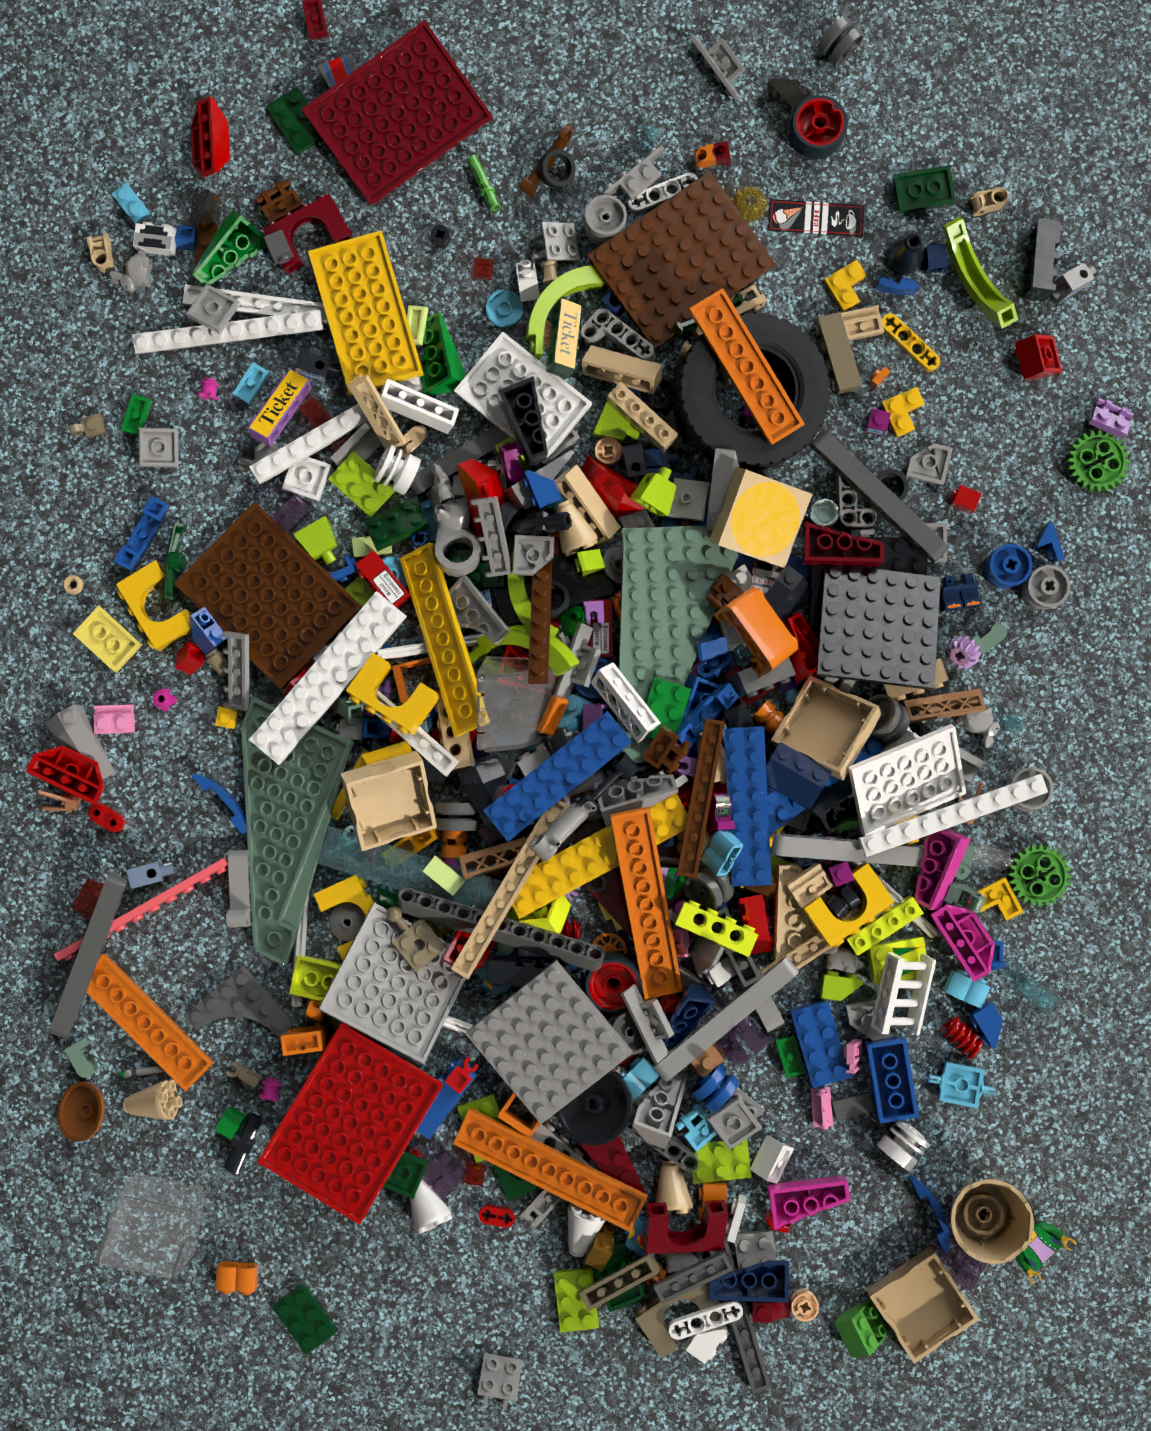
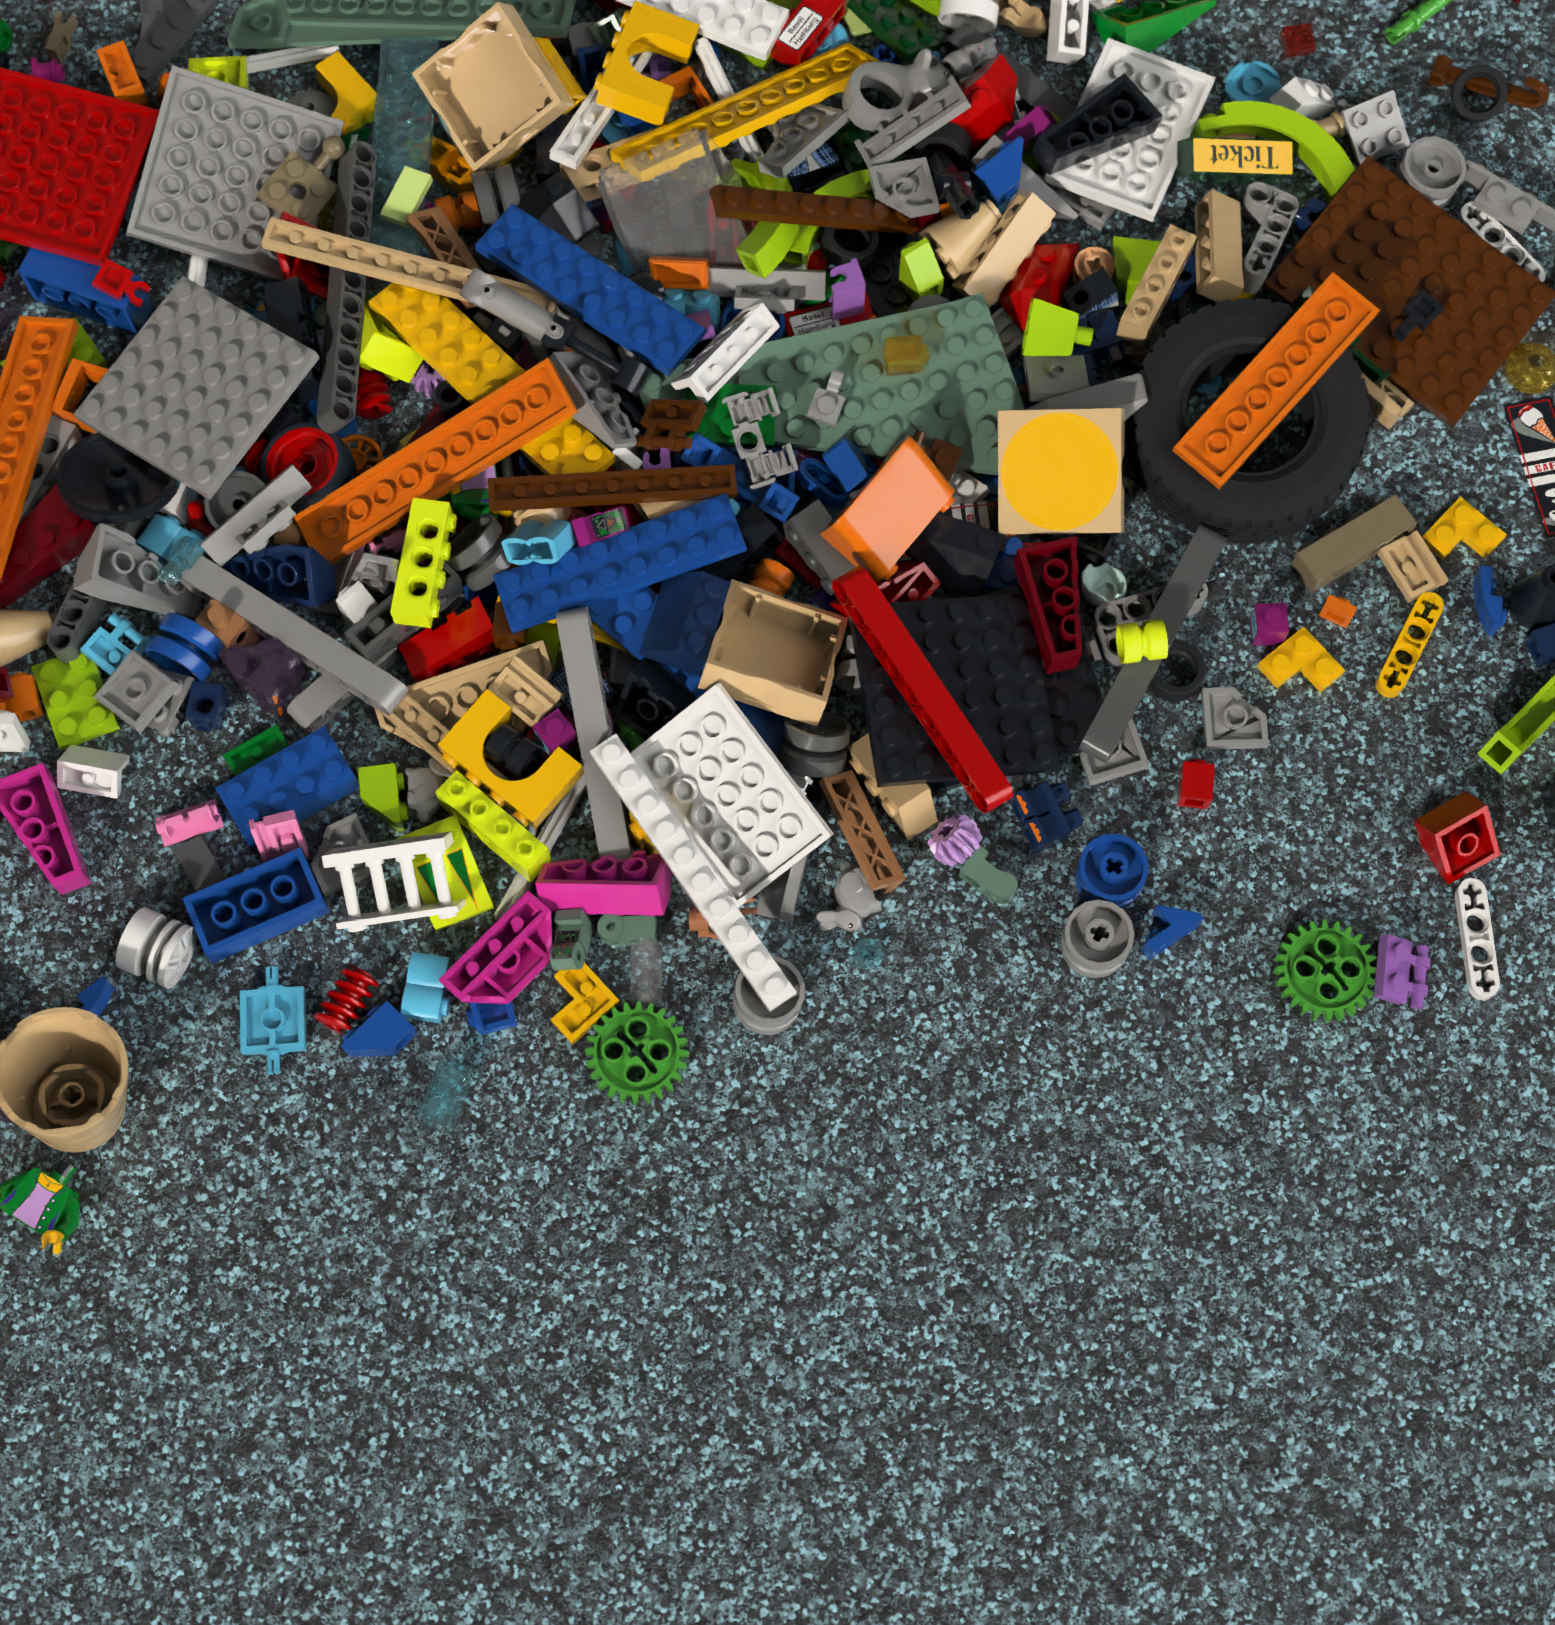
camera: 70 degrees right, 15 degrees down
(657, 590) = (904, 355): none -> clear yellow brick
(657, 1075) = (183, 556): none -> clear light blue plate
(672, 647) = (827, 403): none -> light grey plate
(703, 701) = (742, 415): none -> light grey piece
(706, 260) = (1418, 312): none -> black plate
(745, 1074) = (204, 694): none -> dark blue brick
(884, 646) = (922, 689): none -> red beam
(887, 504) = (1140, 641): none -> neon yellow wheel
(1100, 367) = (1473, 938): none -> white beam

